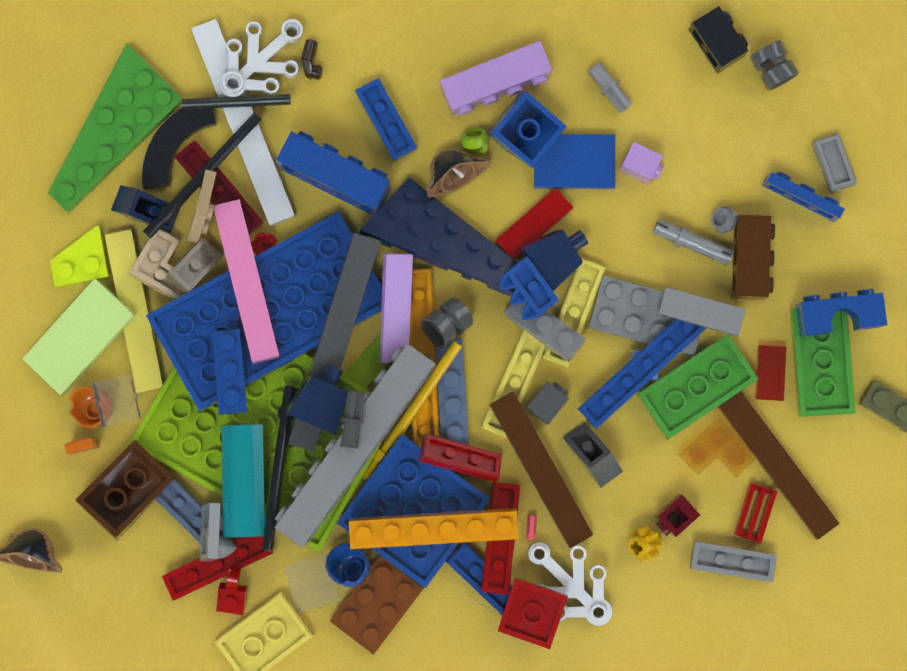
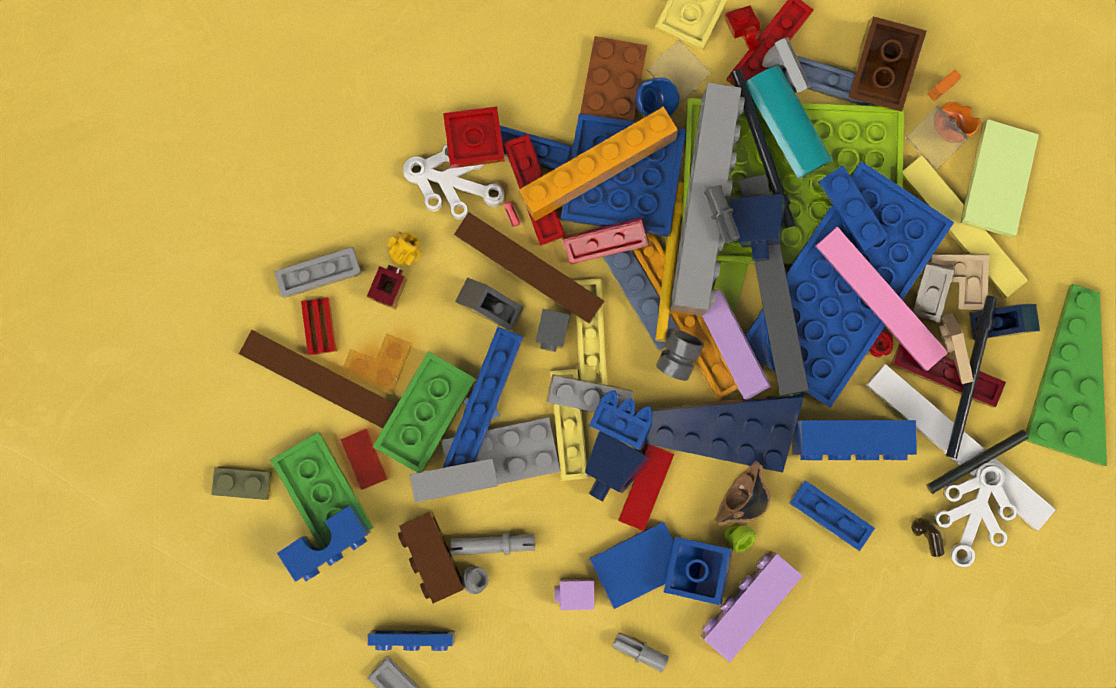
camera: 160 degrees right, 0 degrees up
(81, 261) = (1034, 247): neon yellow wing -> none
(166, 142) = (1018, 393): black tile -> none

